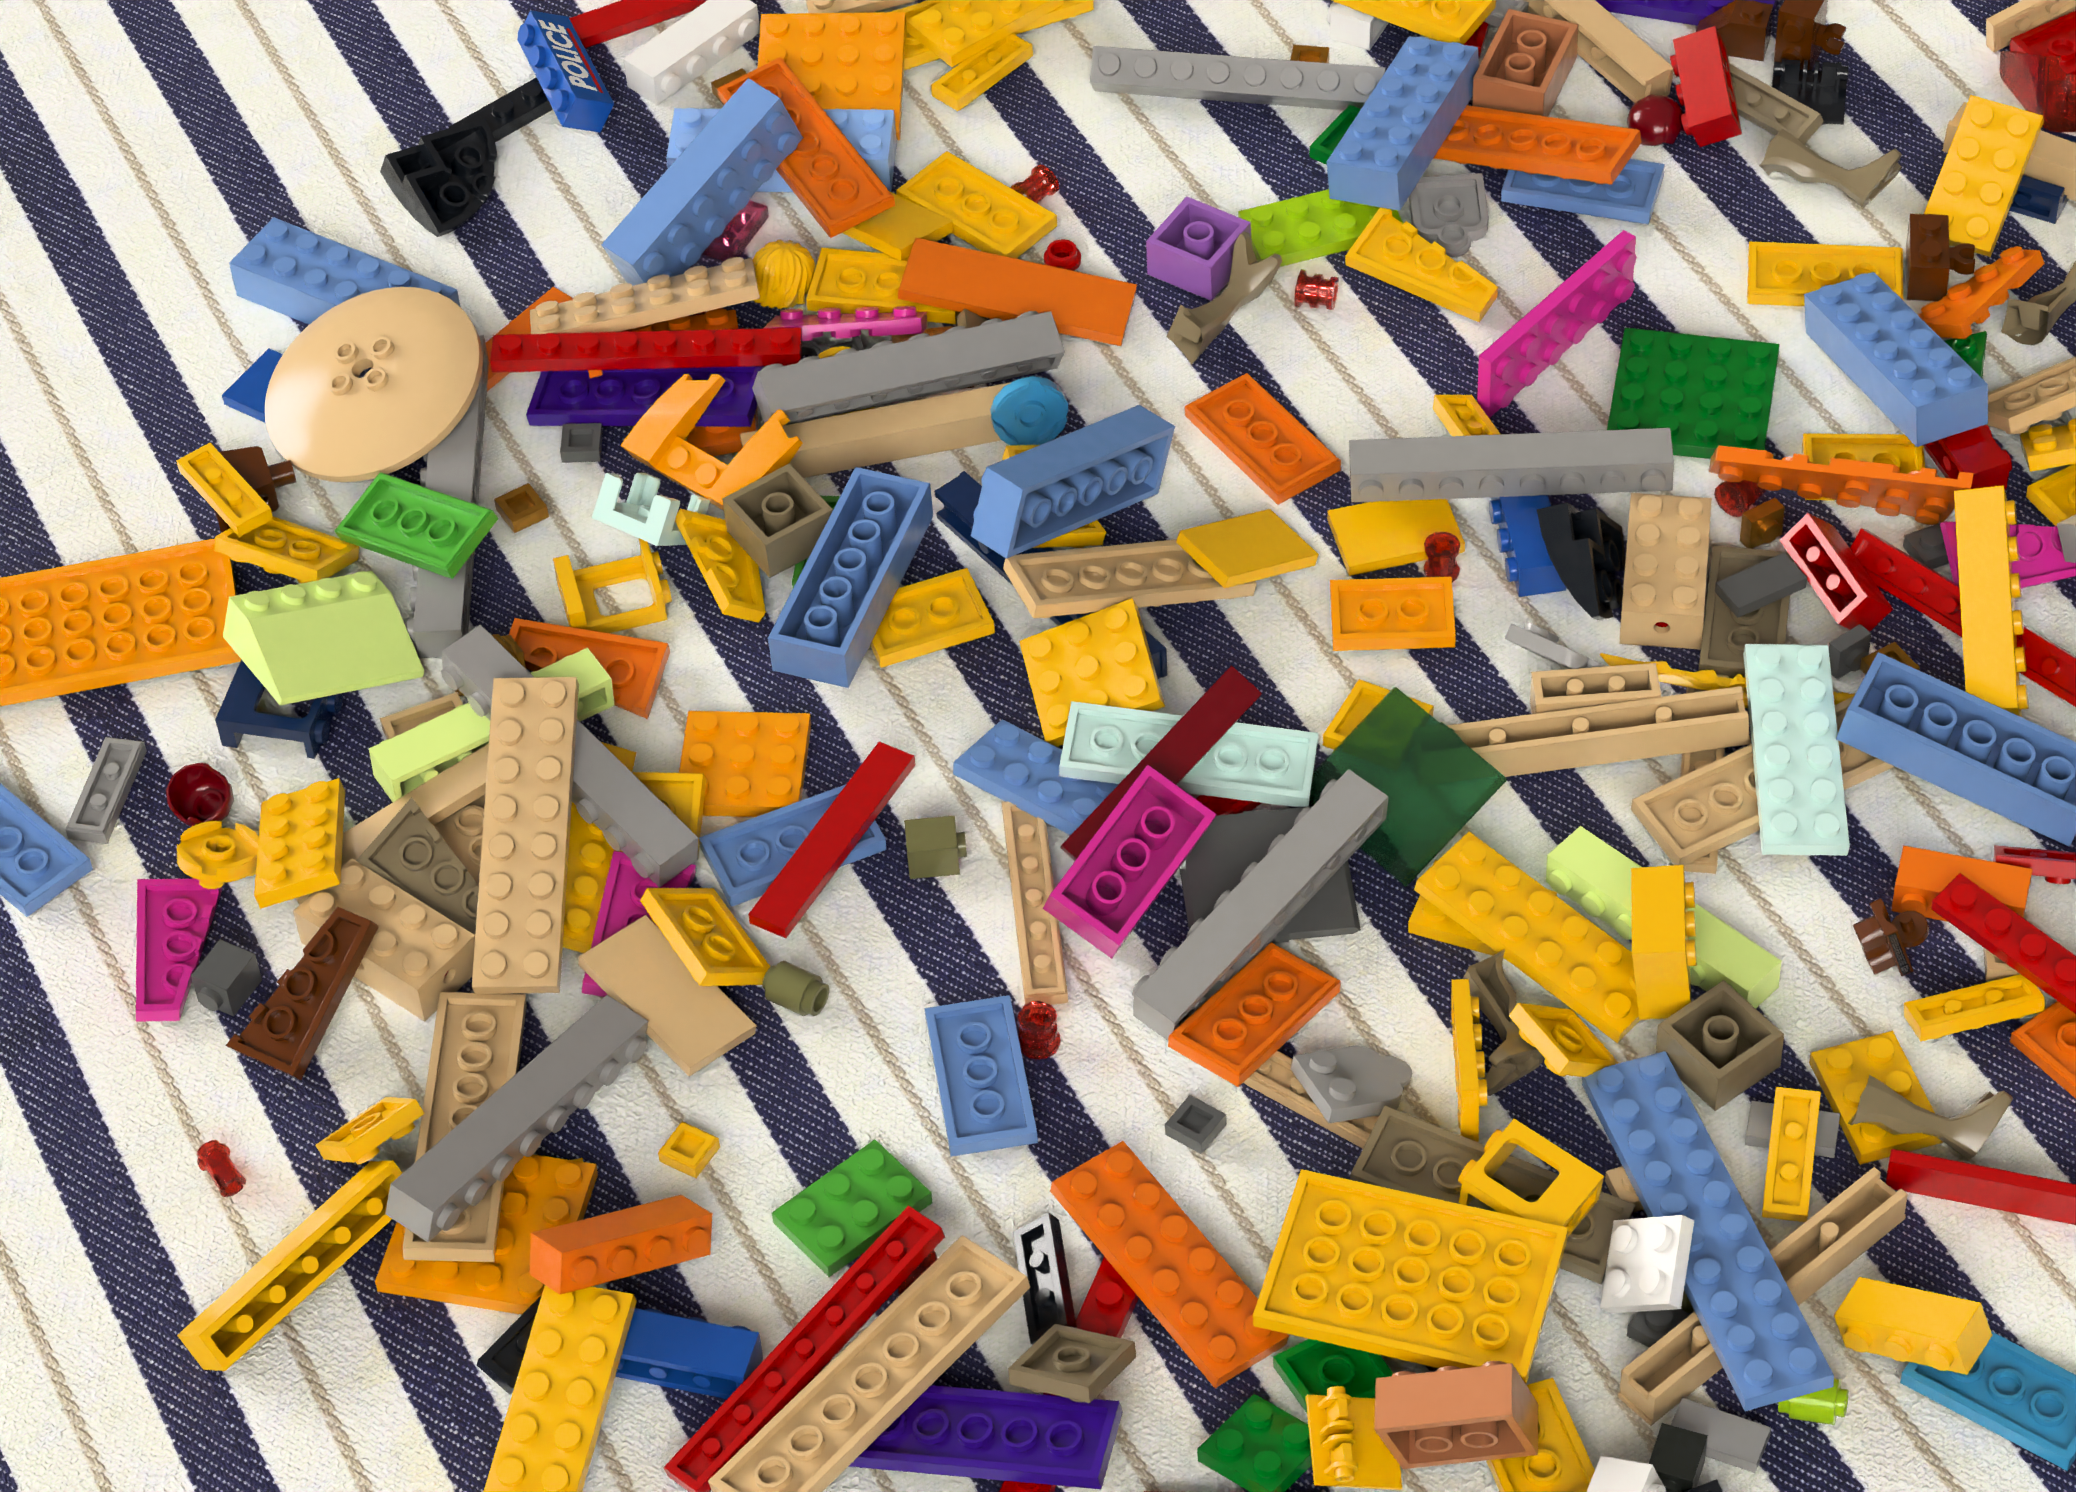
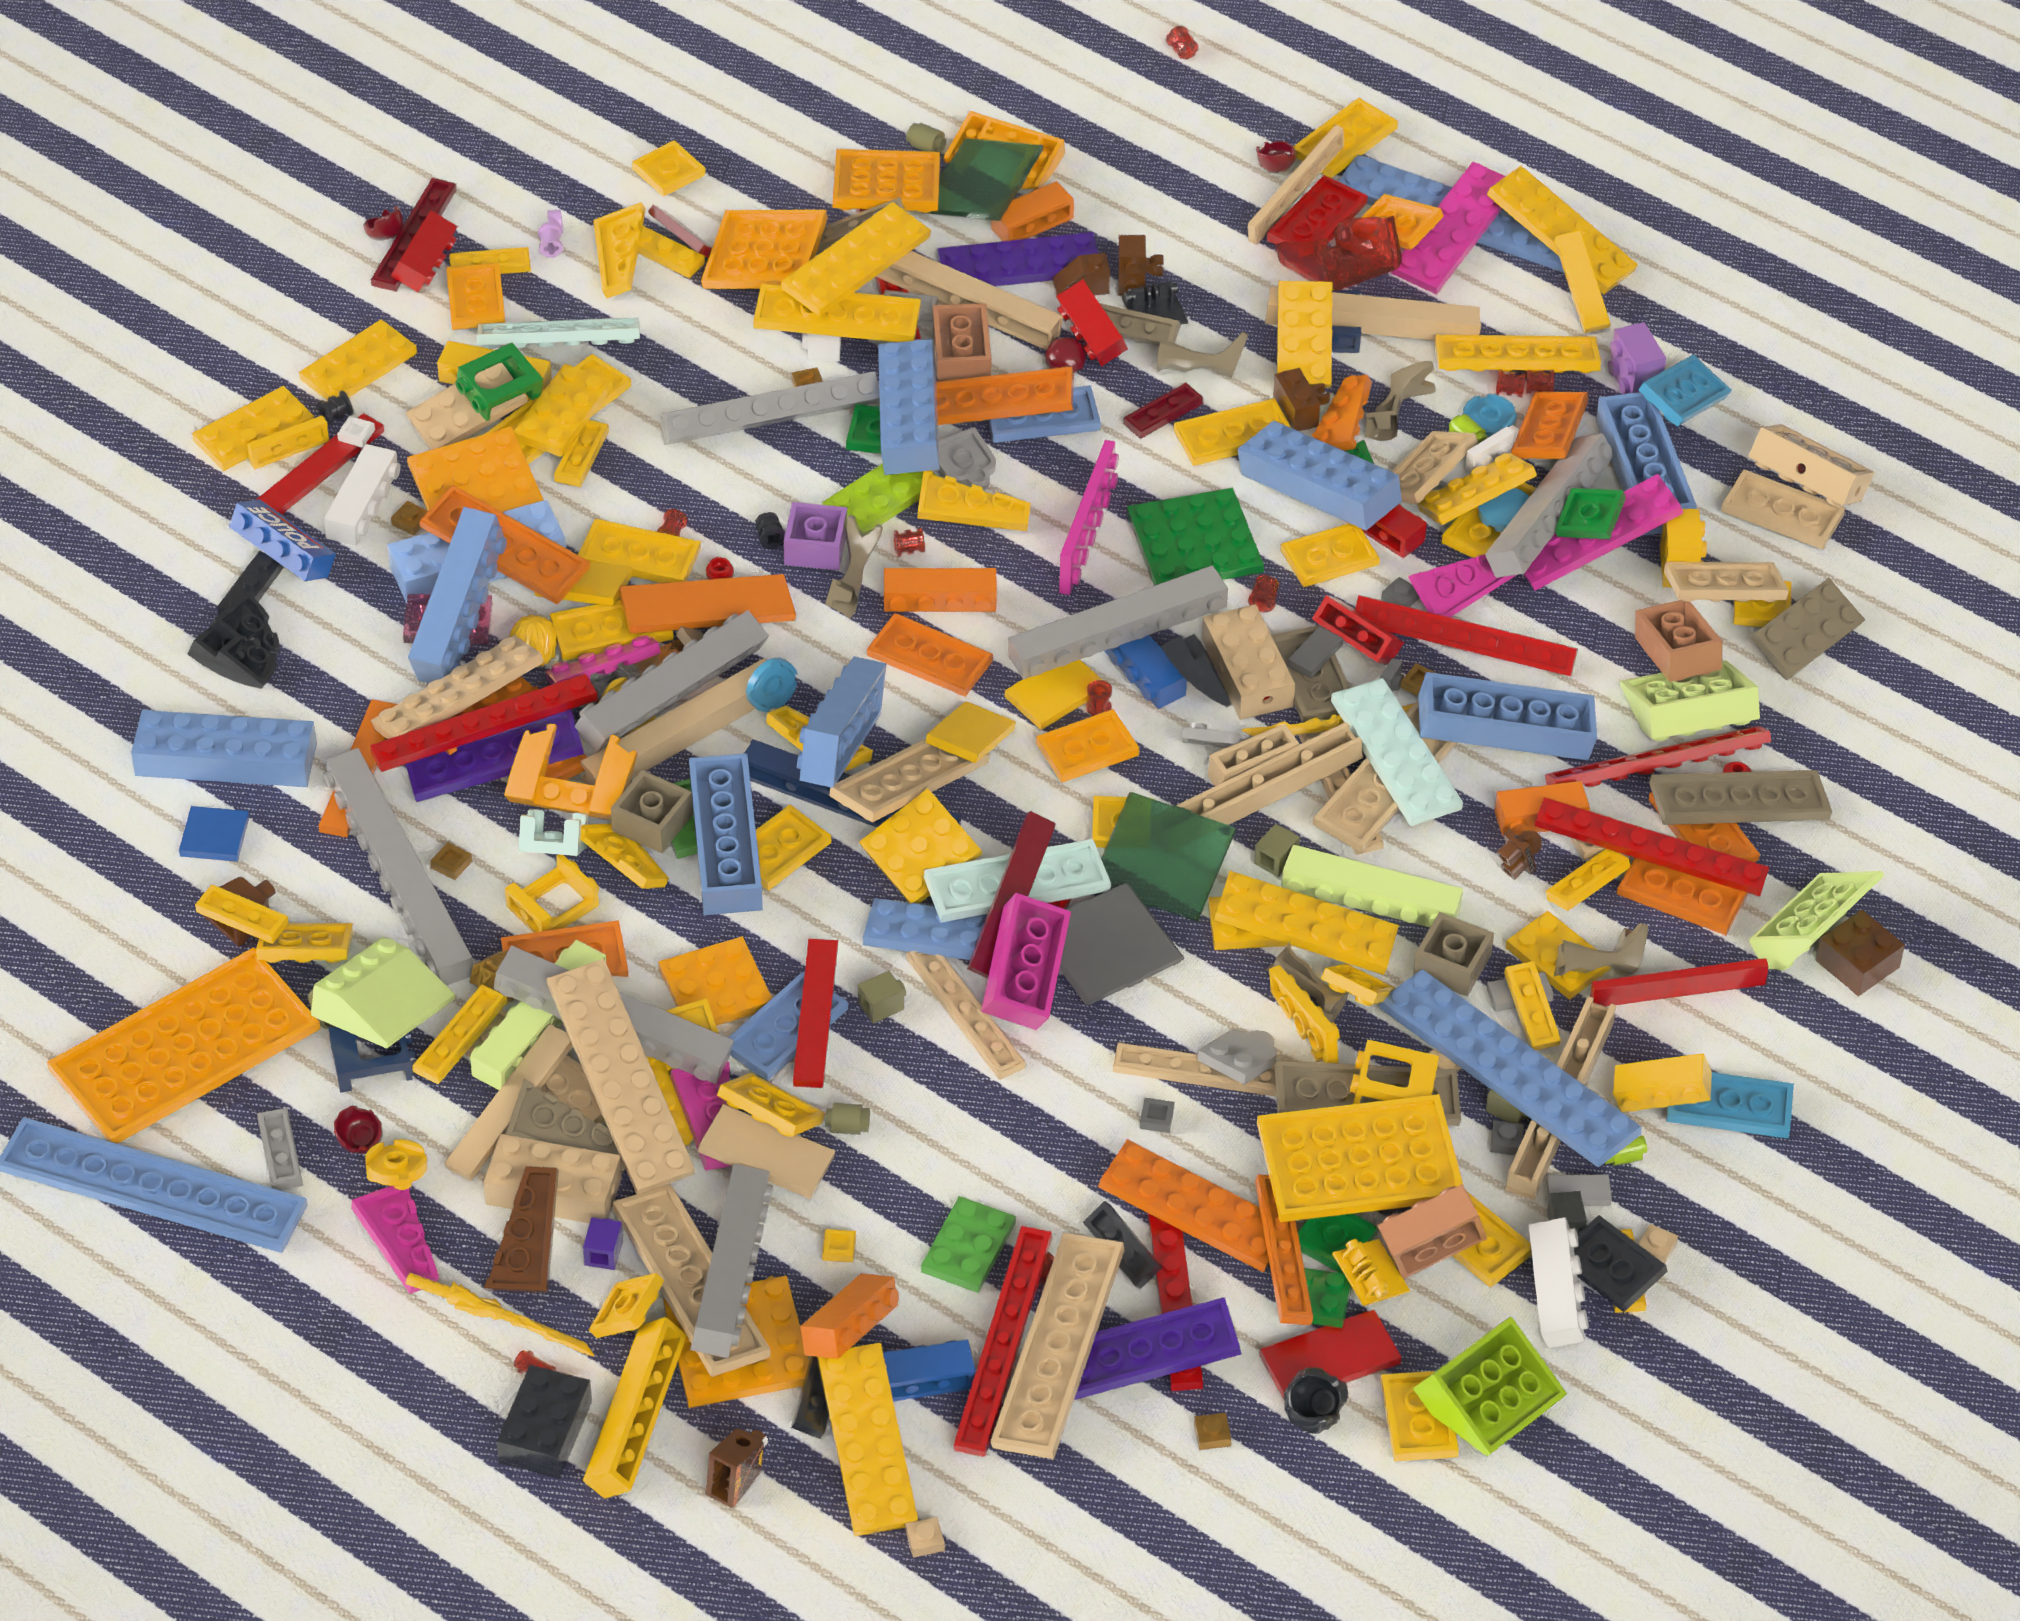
camera: 30 degrees left, 0 degrees up
(183, 1241) = (544, 1421): none -> black brick
(189, 1055) = (483, 1307): none -> yellow sword
(226, 978) = (456, 1243): dark grey brick -> none
(300, 843) = (454, 1136): yellow plate -> none
(372, 1386) = (735, 1465): none -> reddish brown torso
(383, 721) = (459, 1034): none -> yellow tile
(398, 1040) = (603, 1243): none -> dark purple brick
(416, 525) = (396, 895): bright green tile -> none
(419, 387) = (304, 840): tan dish -> none
(581, 442) = (464, 802): dark grey plate -> none
(980, 1076) = (1002, 1132): medium blue plate -> none
(1038, 1030) = (1022, 1091): clear red bush -> none
(1072, 1363) = (1180, 1285): dark tan plate -> none
(1148, 219) = (770, 530): none -> black bush
(1232, 1395) = (1284, 1259): none -> orange tile
(1254, 1014) = (1153, 1033): orange tile -> none
(1261, 903) = (1120, 964): light grey brick -> none
(1319, 360) = (940, 590): none -> orange brick
(1463, 415) = (1061, 599): yellow plate -> none
(1557, 820) = (1274, 849): none -> olive brick
(1647, 1264) = (1488, 1101): white plate -> none
(1661, 939) = (1391, 897): yellow wedge -> none
(1746, 223) = (1163, 410): none -> dark red tile
(1762, 523) = (1290, 612): pearl gold plate -> none
(1847, 481) = (1339, 567): orange wing -> none
(1988, 597) = (1466, 614): yellow brick -> none

